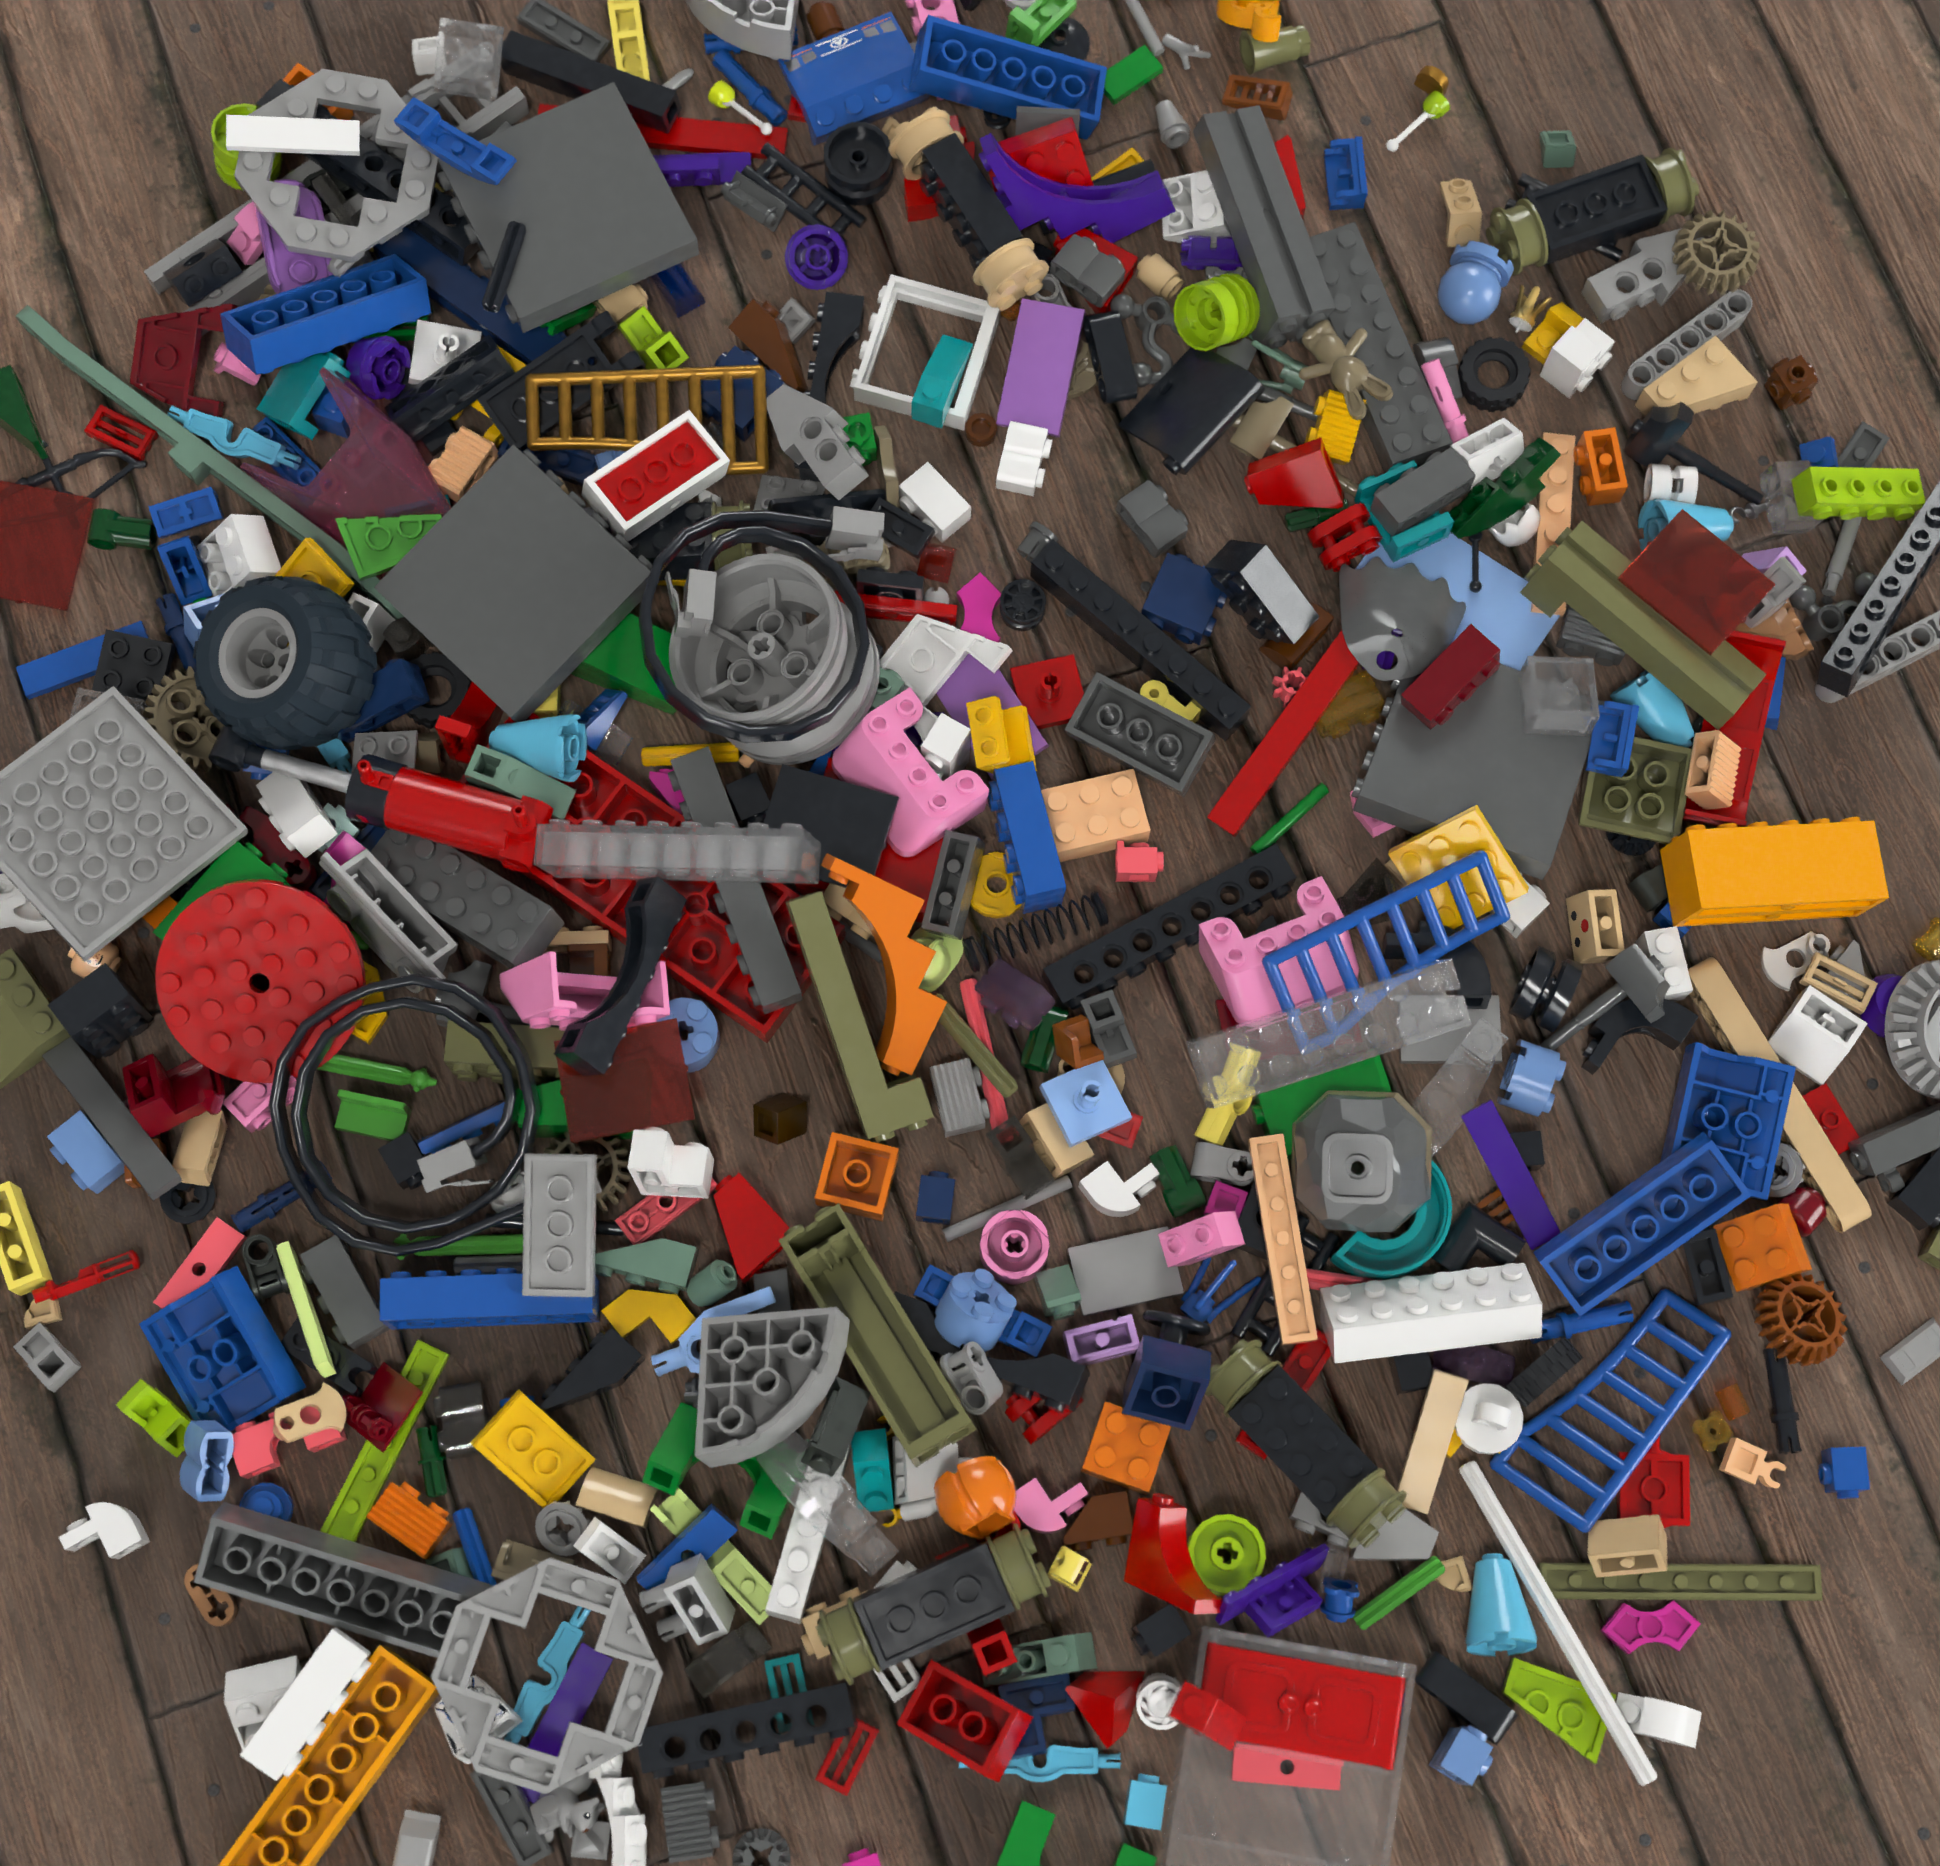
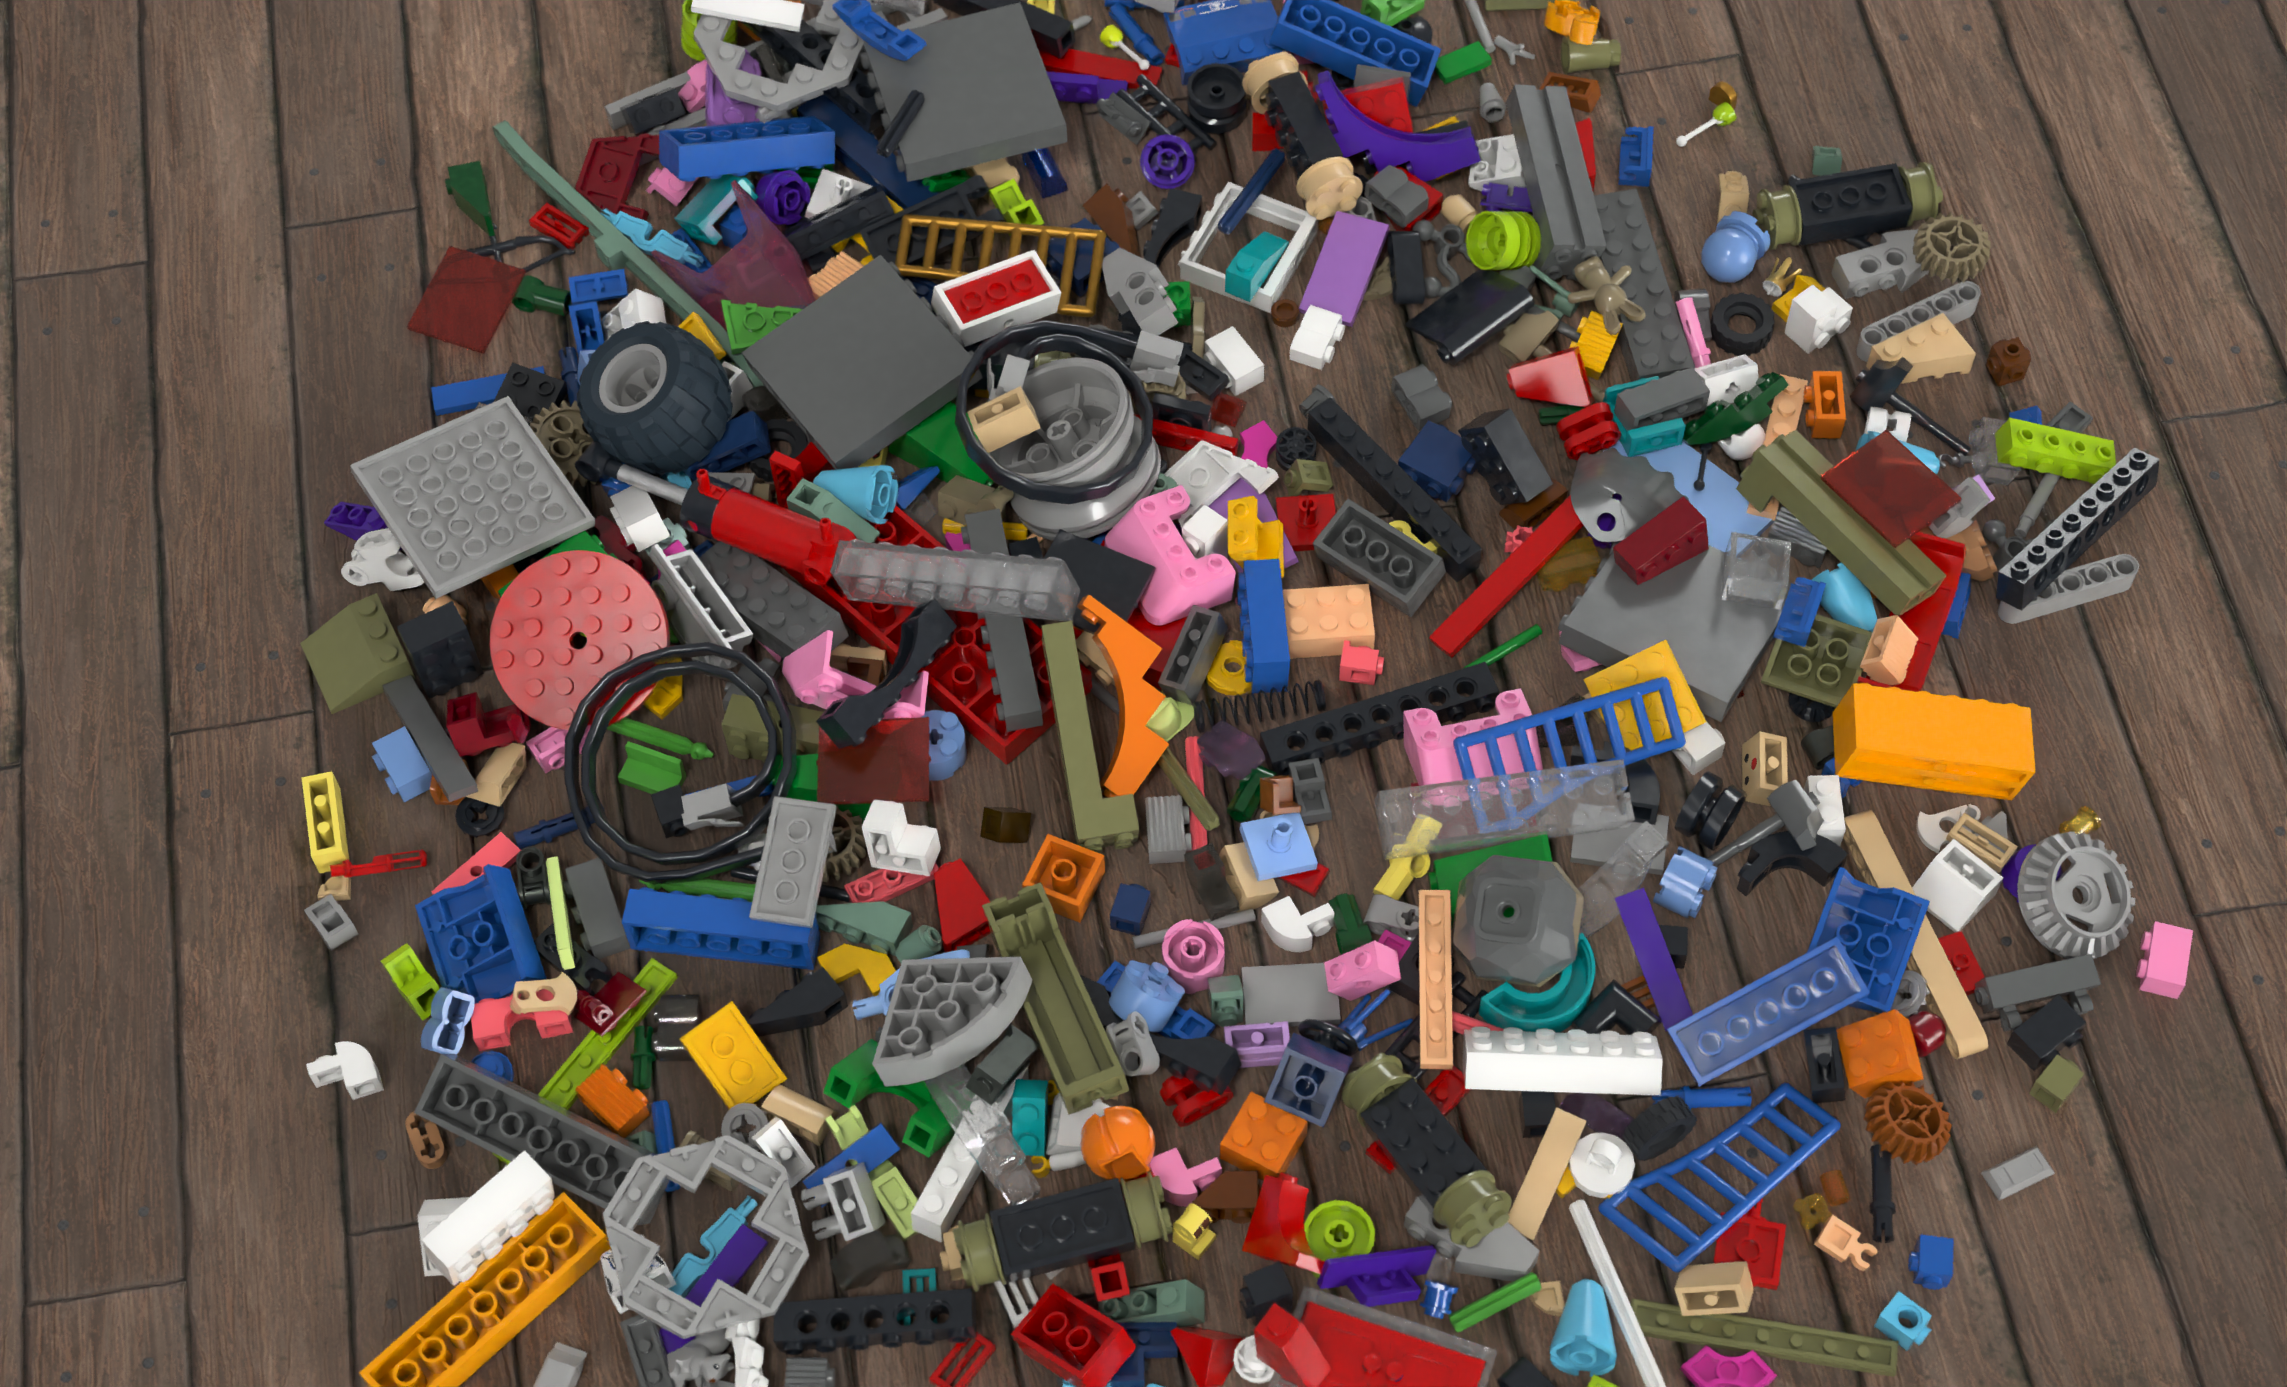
camera: 15 degrees right, 15 degrees down
(666, 731) = (966, 496): none -> dark tan hinge
(699, 650) = (1004, 419): none -> tan brick
(920, 285) = (1251, 191): none -> dark blue axle
(1040, 638) = (1307, 476): none -> olive bracket
(1808, 1543) = (1903, 1307): none -> medium azure brick

